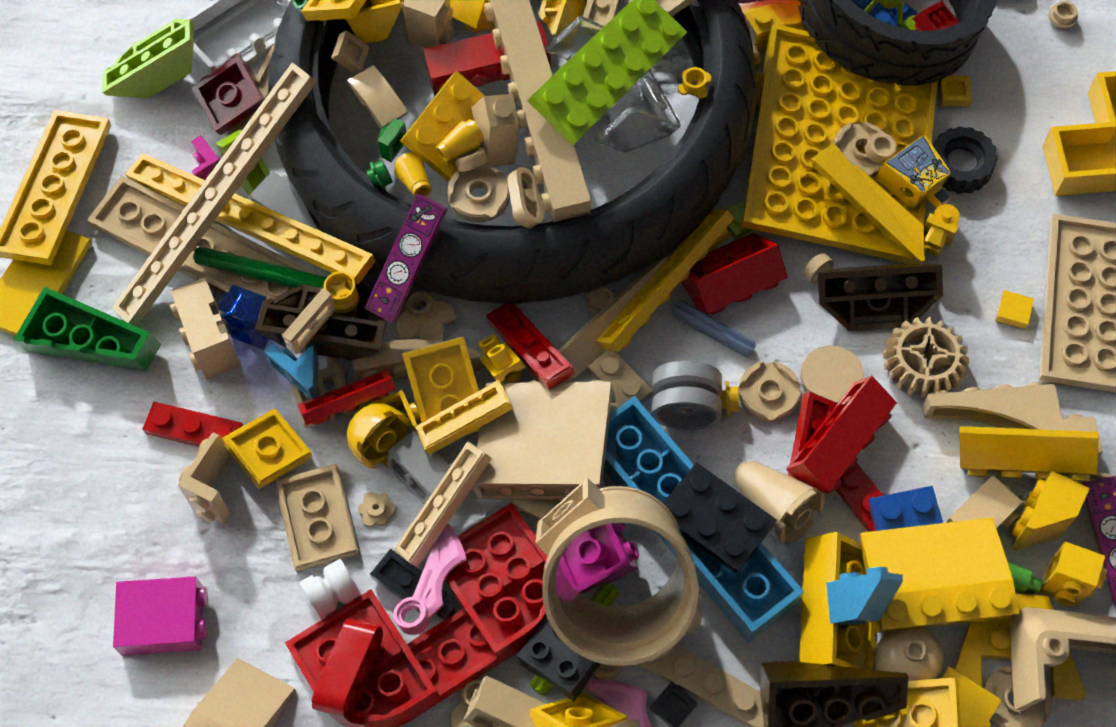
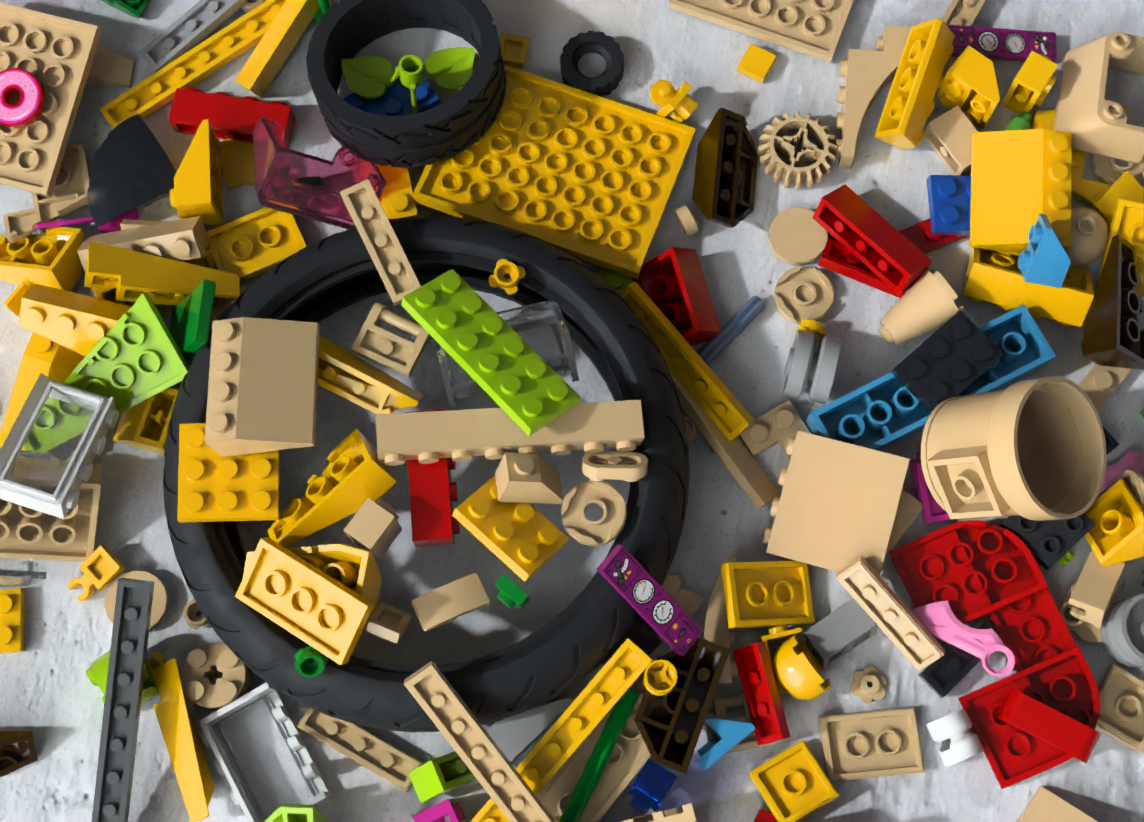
camera: 80 degrees left, 10 degrees up
(229, 94) = (363, 779): plate -> none
(309, 321) = (696, 712): tan tile -> none
(379, 175) = (550, 612): green plate -> none
(412, 173) = (561, 576): yellow cone -> none
(460, 140) = (542, 518): yellow cone -> none
(464, 417) = (807, 578): yellow plate -> none
(471, 160) = (561, 512): tan tile -> none
(500, 360) = (741, 536): yellow hips -> none
(530, 345) = (734, 502): red tile -> none
(853, 135) = (569, 162): tan tile -> none
(872, 201) = (638, 151): yellow wedge -> none
(880, 148) = (581, 129): tan tile -> none
(916, 174) = (611, 106): torso -> none
(935, 18) = (443, 44): red plate -> none

